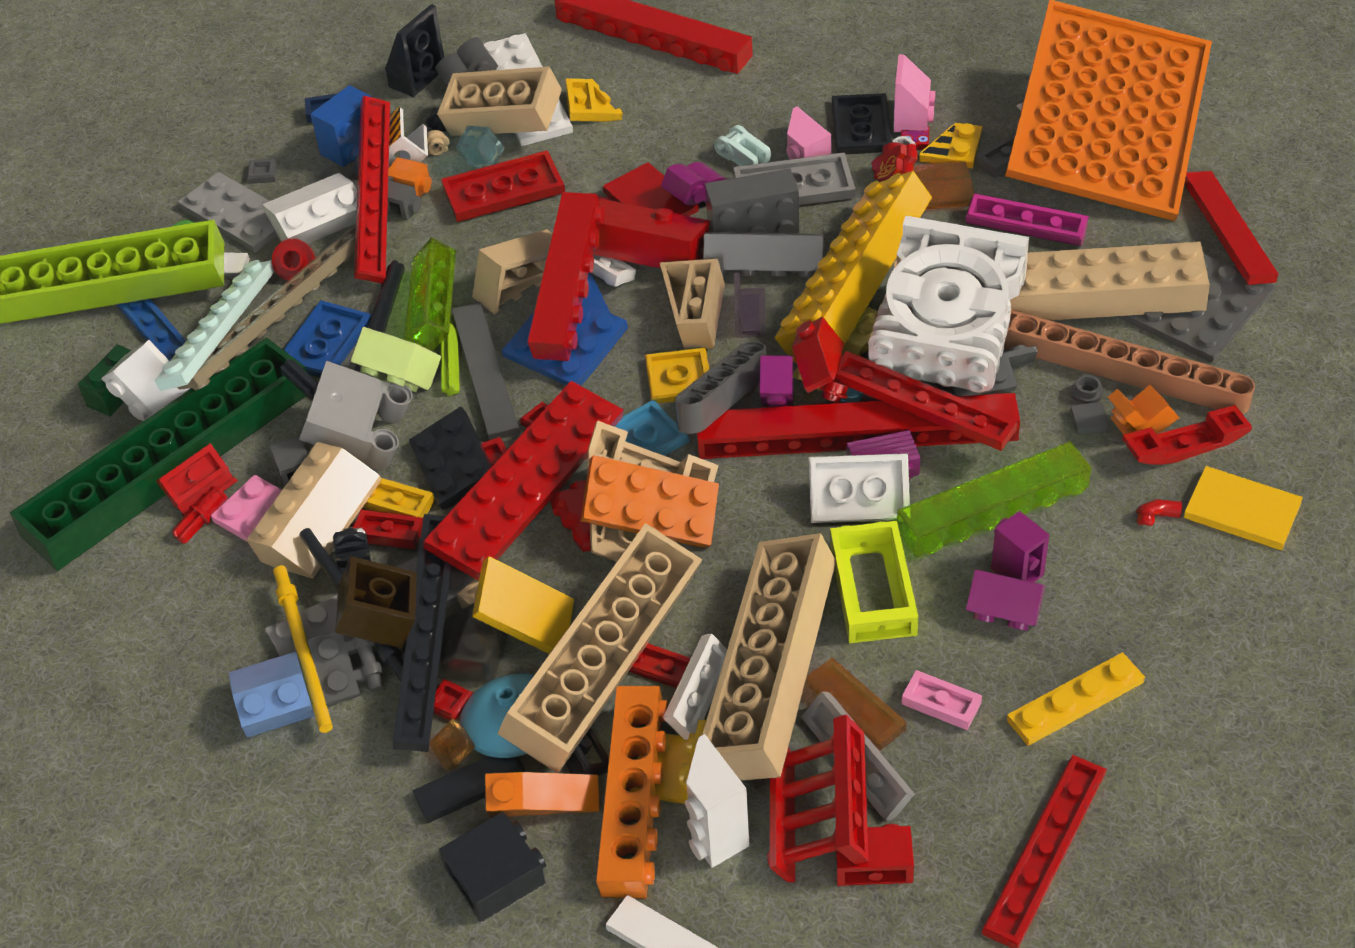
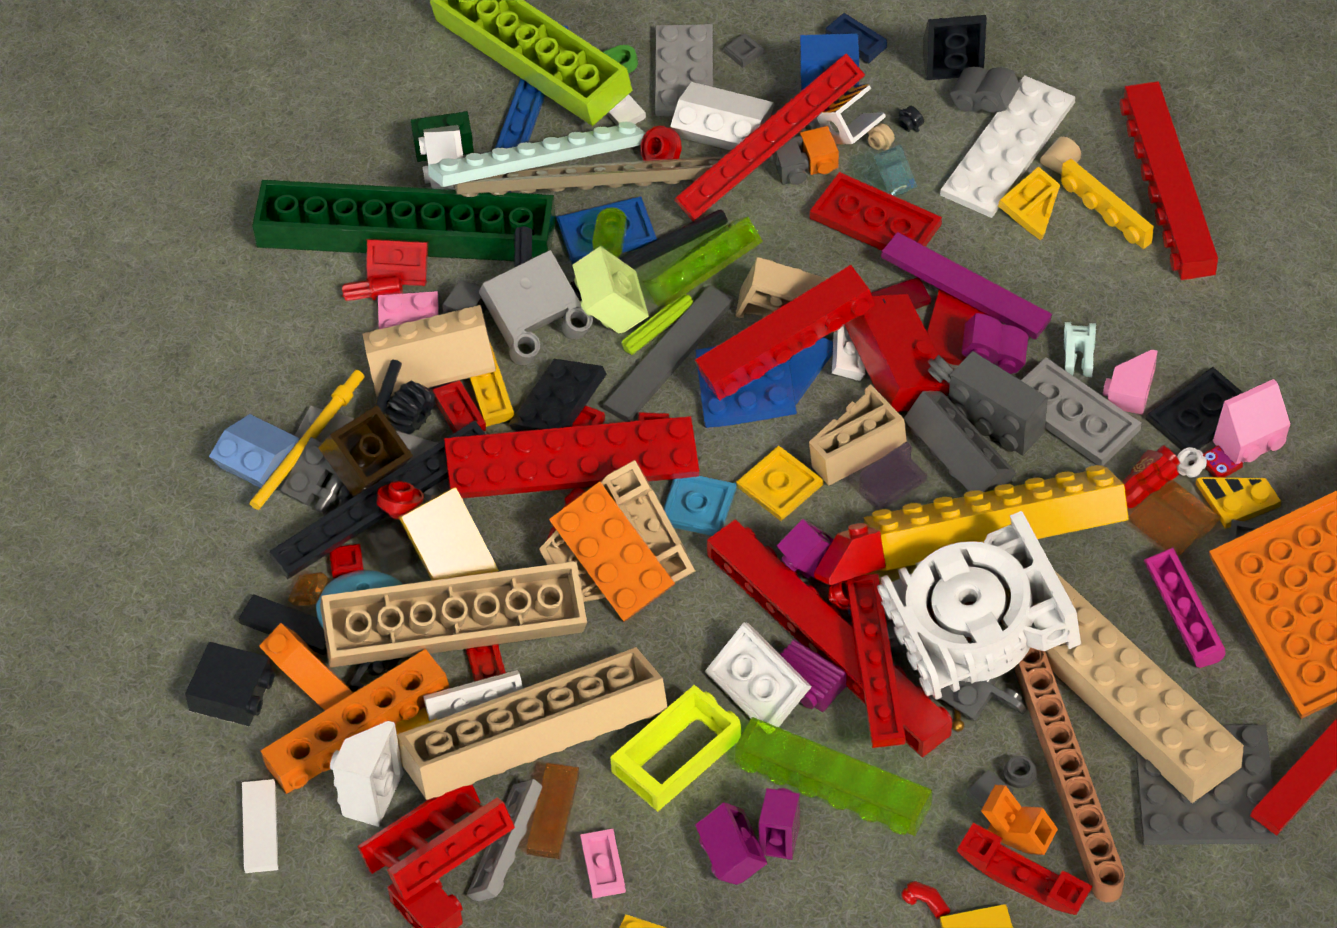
camera: 50 degrees right, 5 degrees up
(336, 332) = (607, 235): none -> clear neon green plate
(450, 608) = (399, 498): none -> red plate
(500, 100) = (952, 144): tan brick -> none
(565, 65) = (1060, 152): none -> tan brick
(619, 170) = (966, 285): none -> magenta tile
(636, 66) = (1111, 207): none -> yellow plate
(698, 211) = (940, 369): none -> dark grey plate
(719, 388) = (766, 515): dark grey beam -> none

